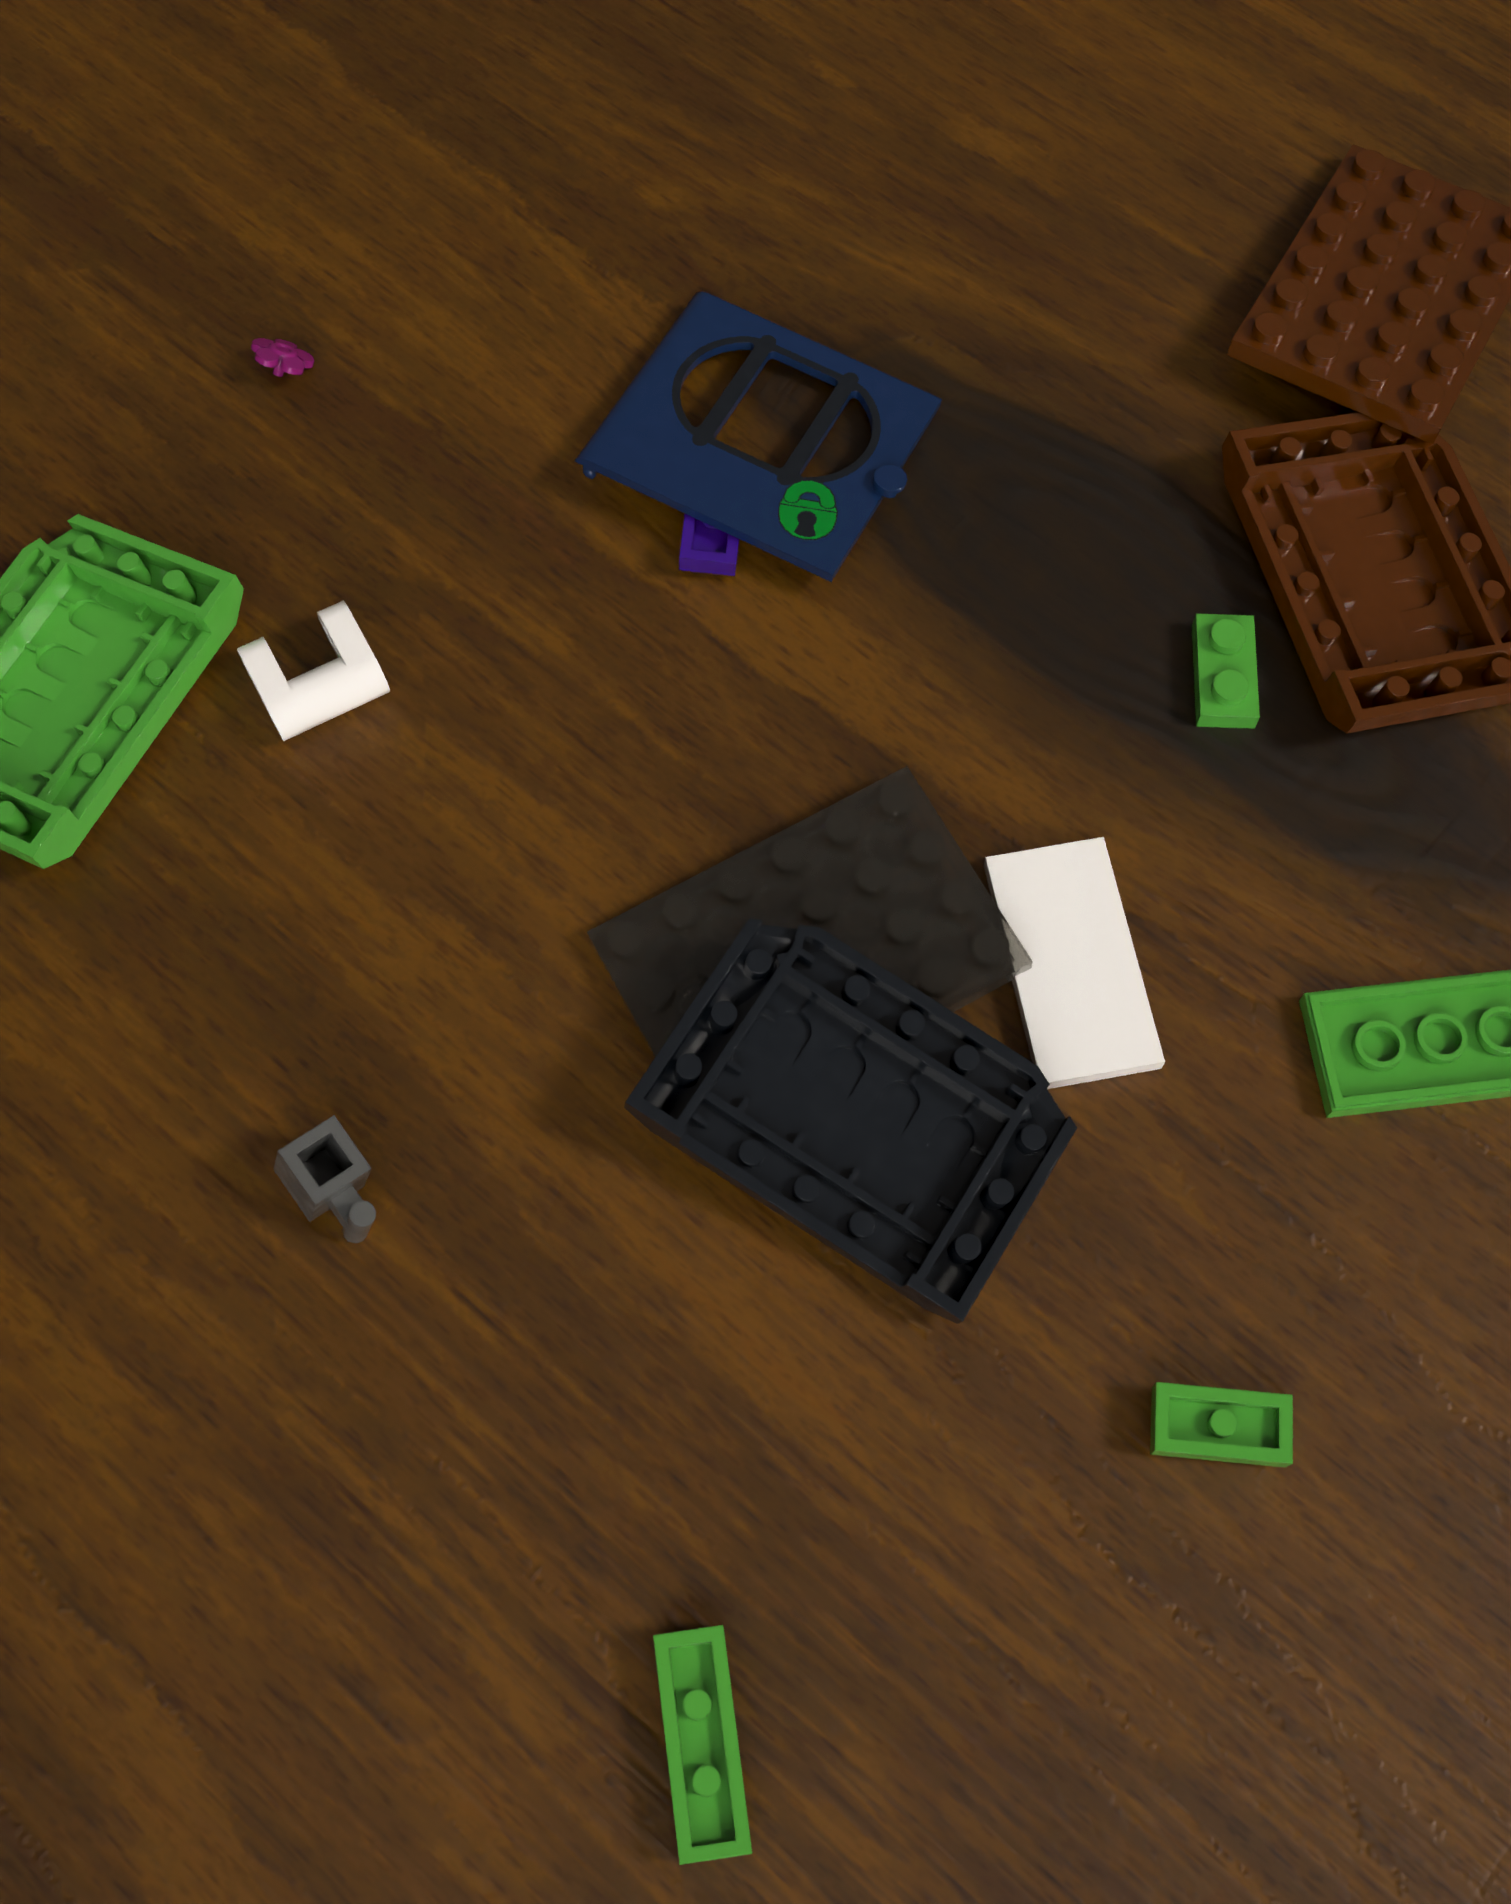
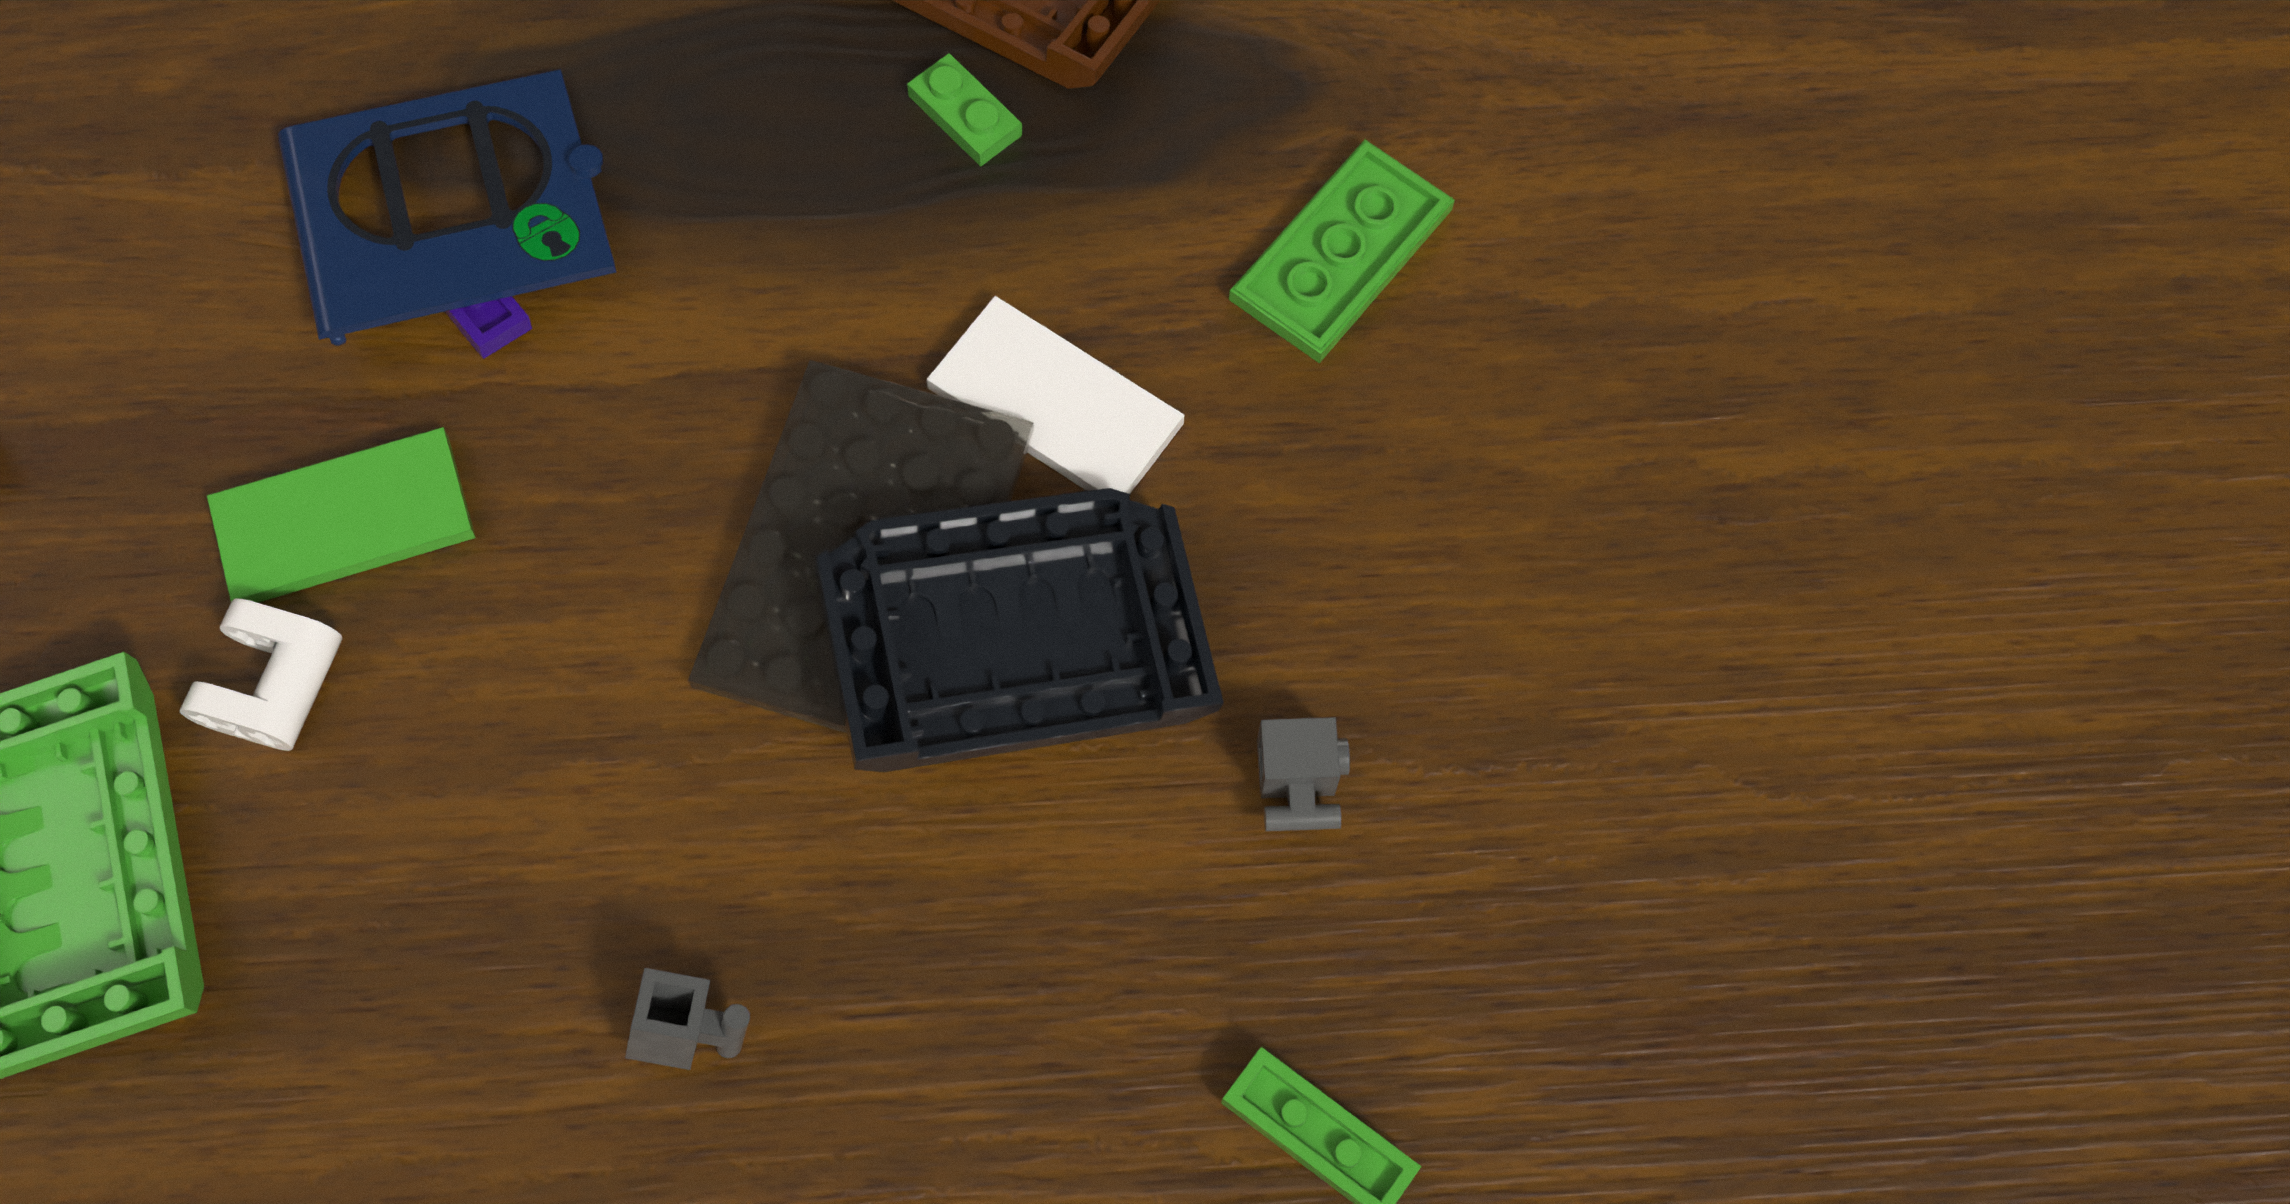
camera: 50 degrees left, 0 degrees up
(475, 604) = (340, 517): none -> bright green tile
(980, 1428) = (1299, 763): none -> dark grey brick
(1221, 1424) = (1444, 619): bright green plate -> none

